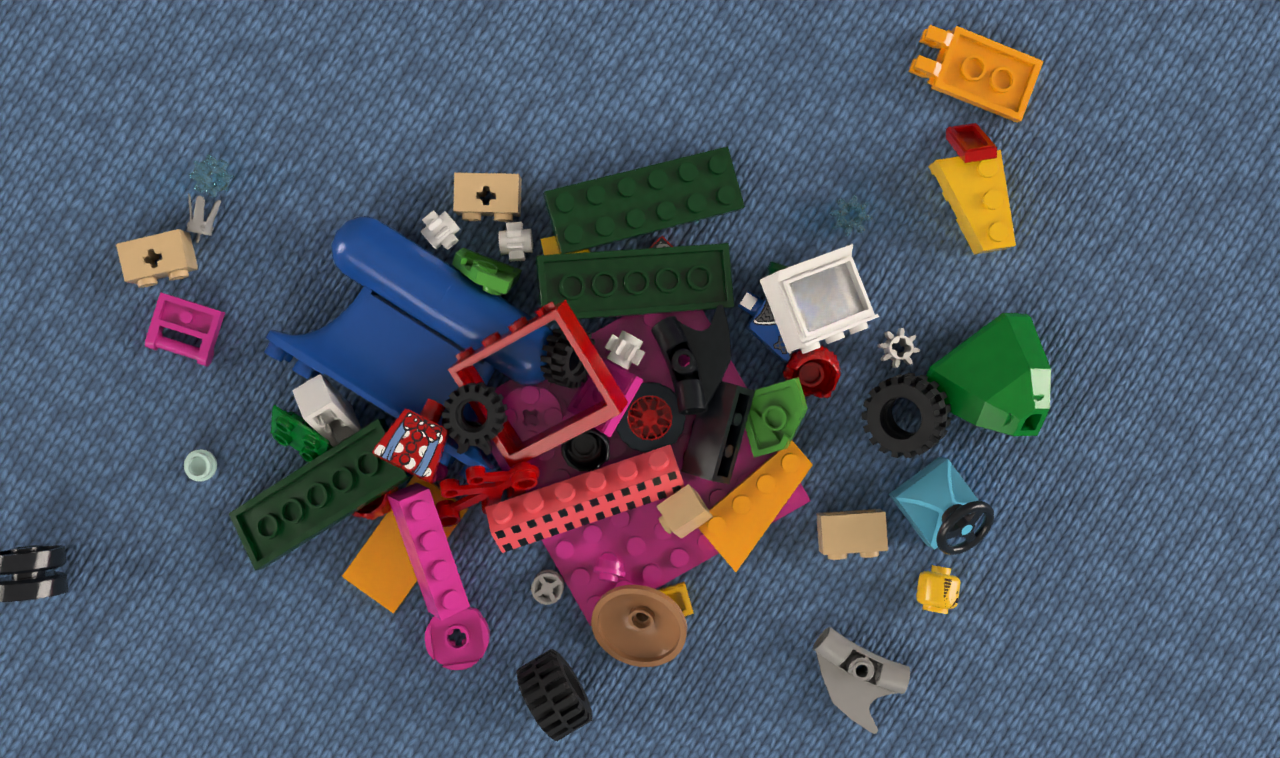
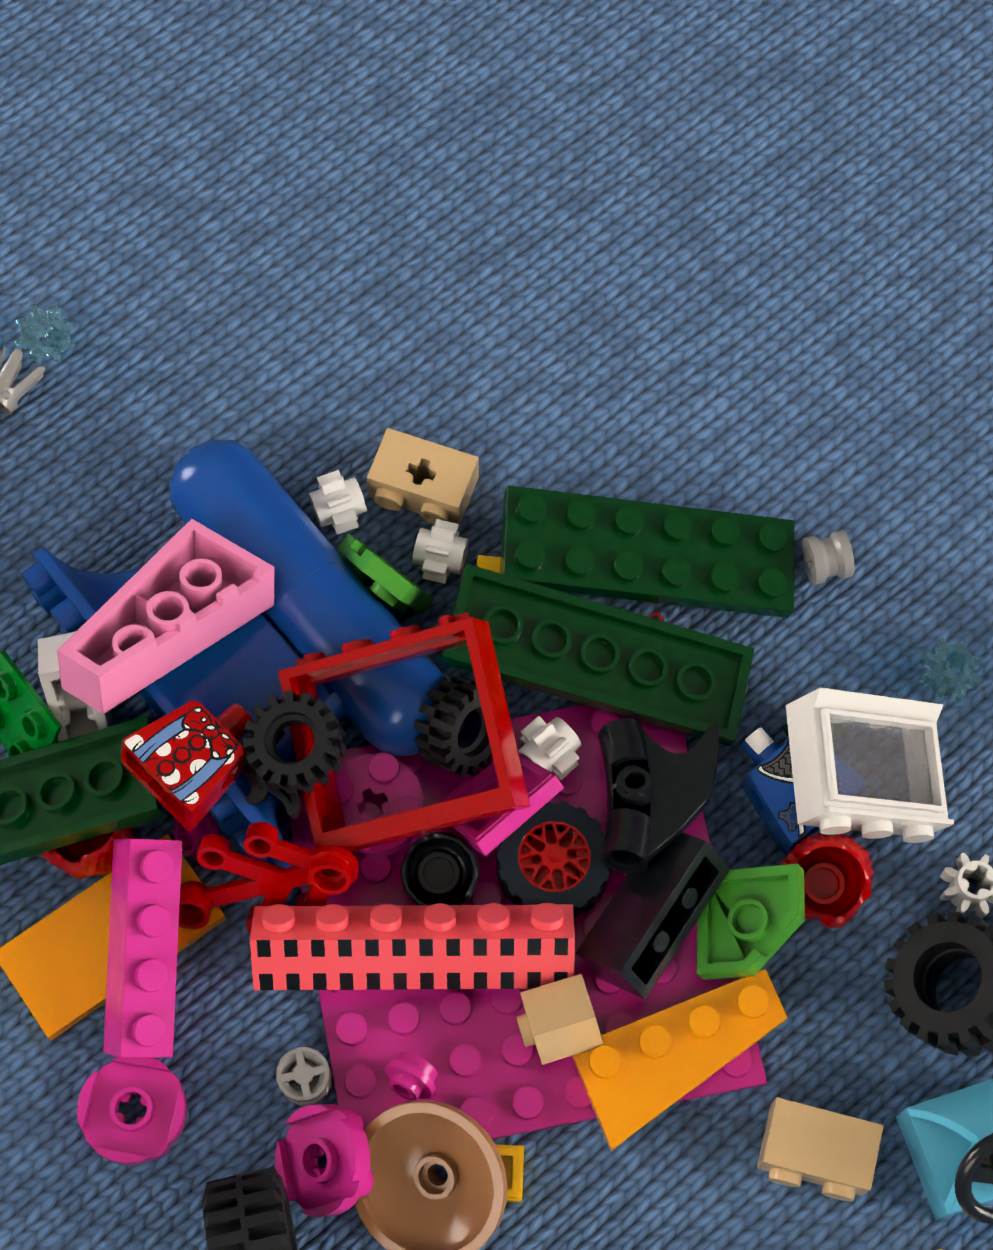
camera: 20 degrees right, 20 degrees down
(365, 358) = (164, 616): none -> bright pink wedge
(590, 637) = (347, 1171): none -> dark pink plate
(756, 165) = (828, 557): none -> light grey wheel

